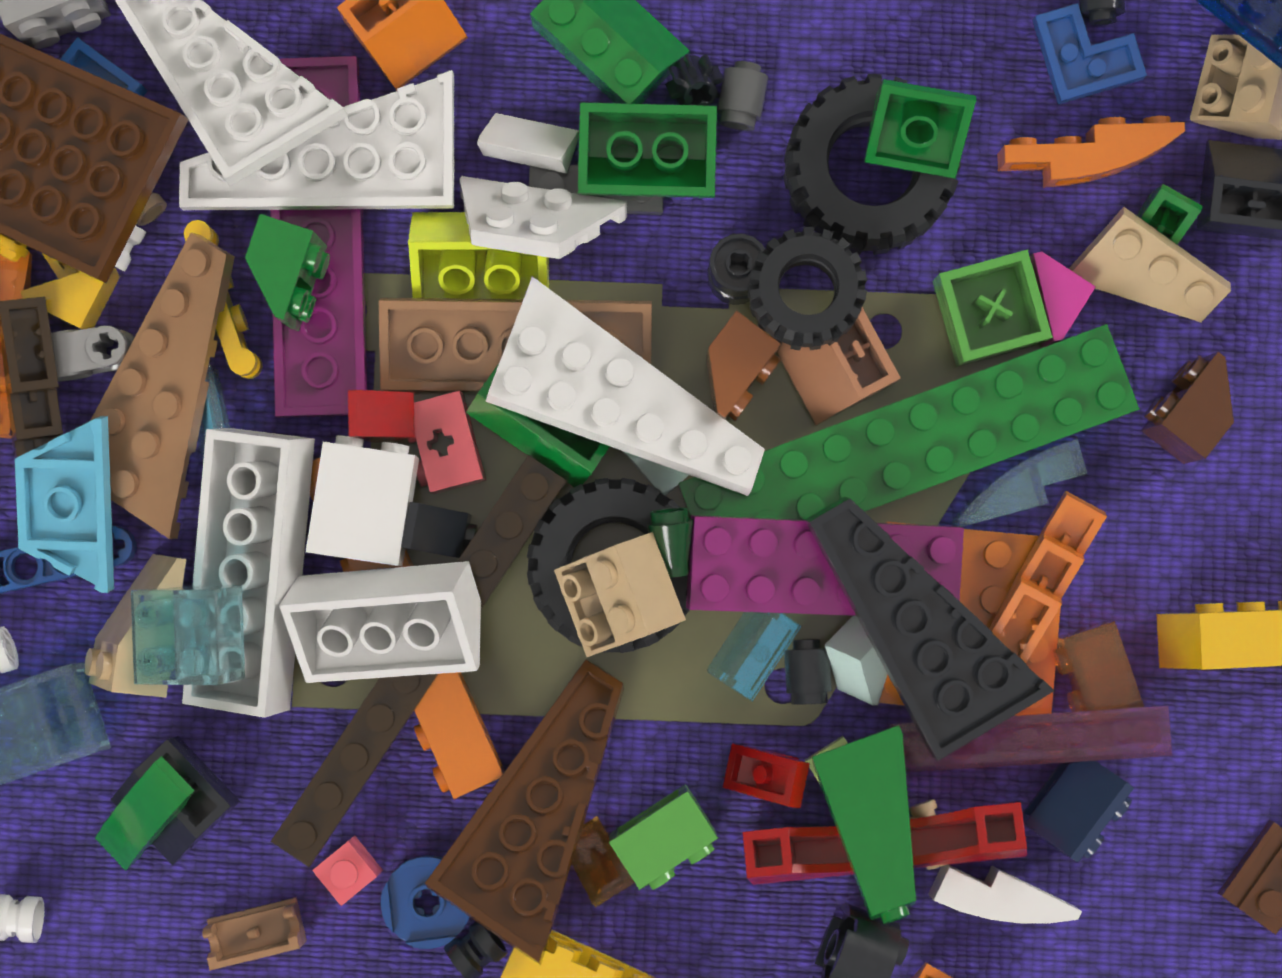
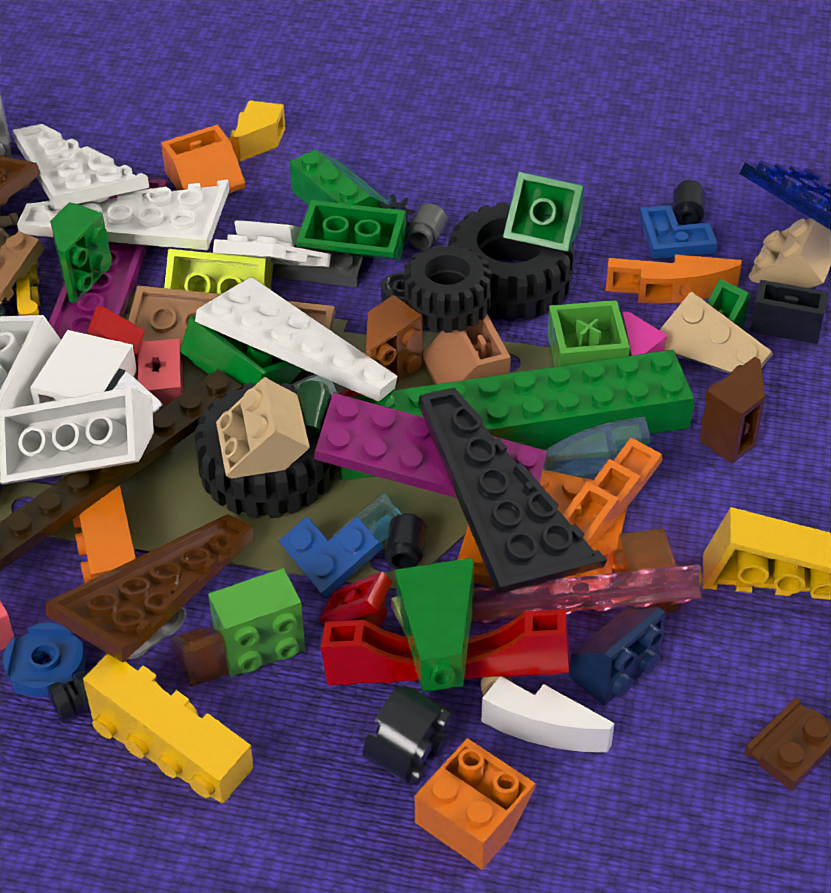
camera: 10 degrees right, 40 degrees down
(720, 715) = (331, 561): none -> blue plate
(856, 663) = (446, 535): light aqua slope -> none

